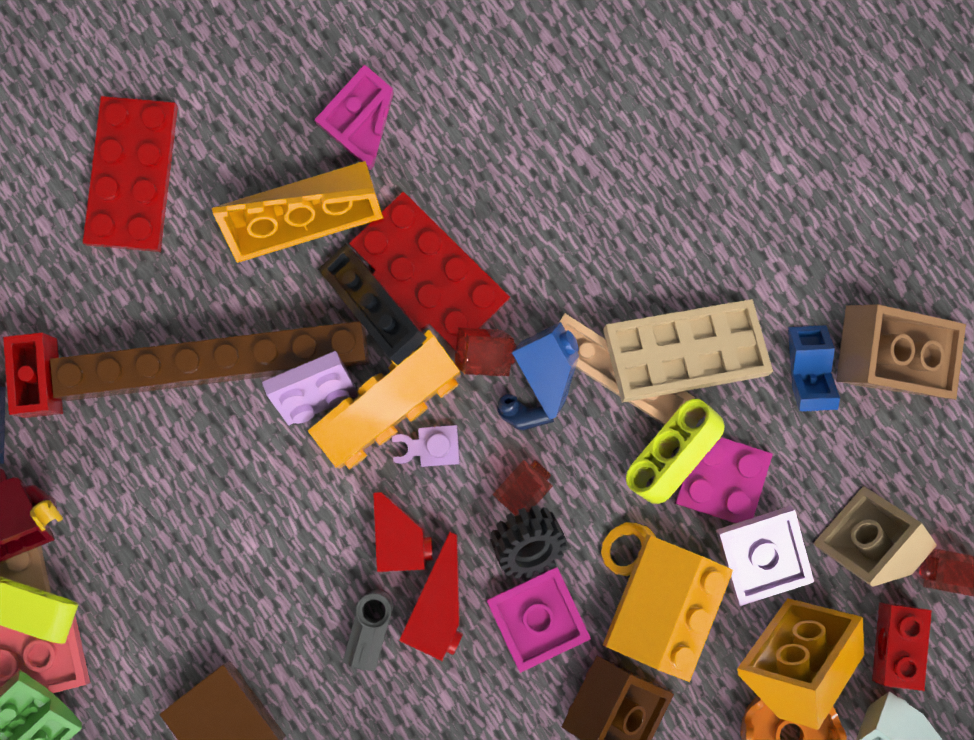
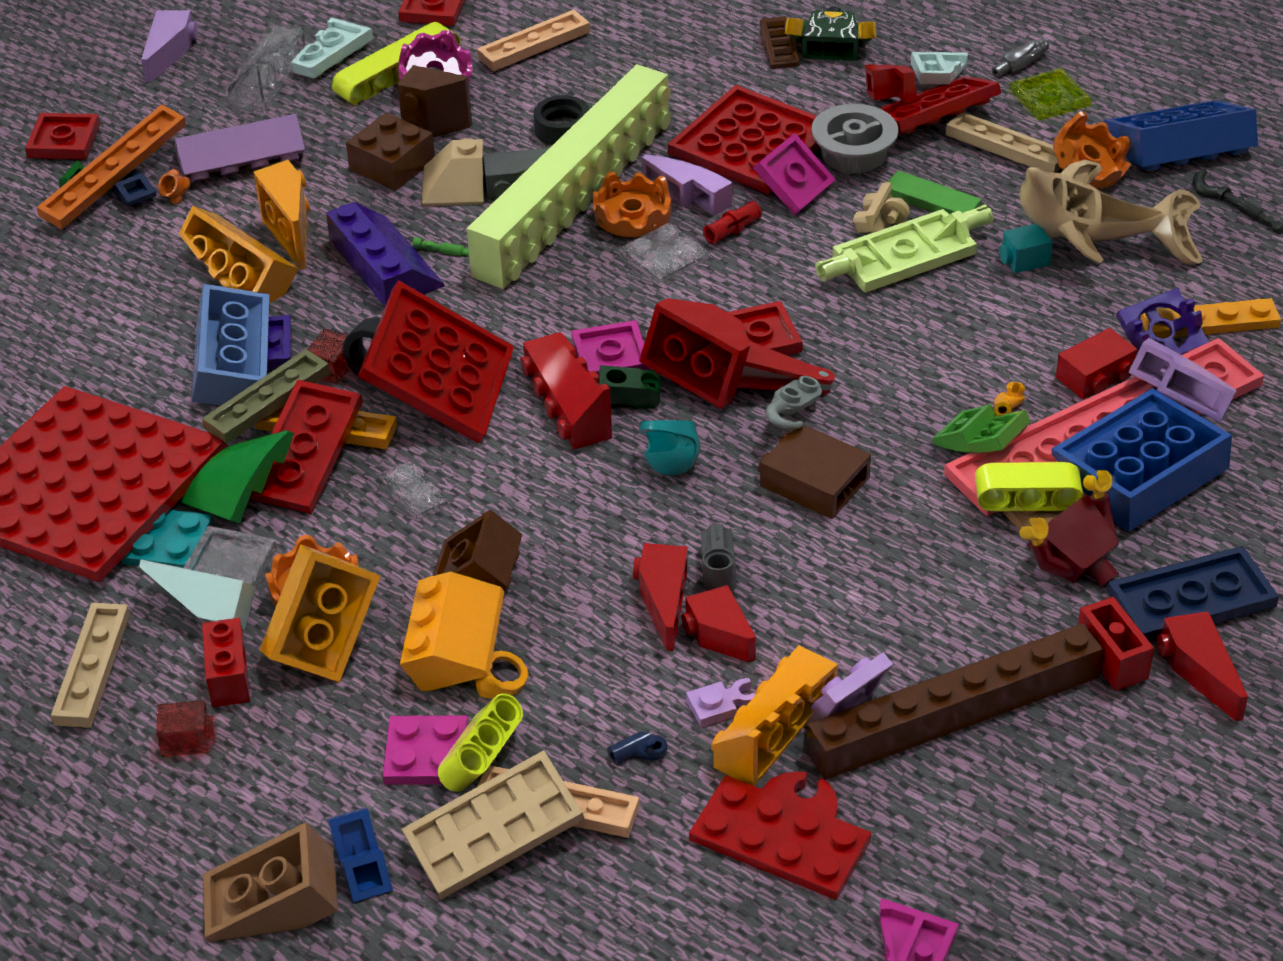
camera: 160 degrees right, 40 degrees down
(130, 174) = (1124, 839): red plate -> none
(299, 212) = (935, 834): light orange wedge -> none
(372, 304) = (821, 764): black plate -> none
(484, 352) = (695, 771): clear red brick -> none
(524, 487) = (617, 685): clear red brick -> none
(528, 542) = (597, 639): black tyre -> none
(538, 619) = (568, 604): dark pink plate -> none
(549, 365) = (631, 773): slope -> none
(765, 555) = (371, 694): plate -> none
(876, 539) = (266, 731): tan slope -> none

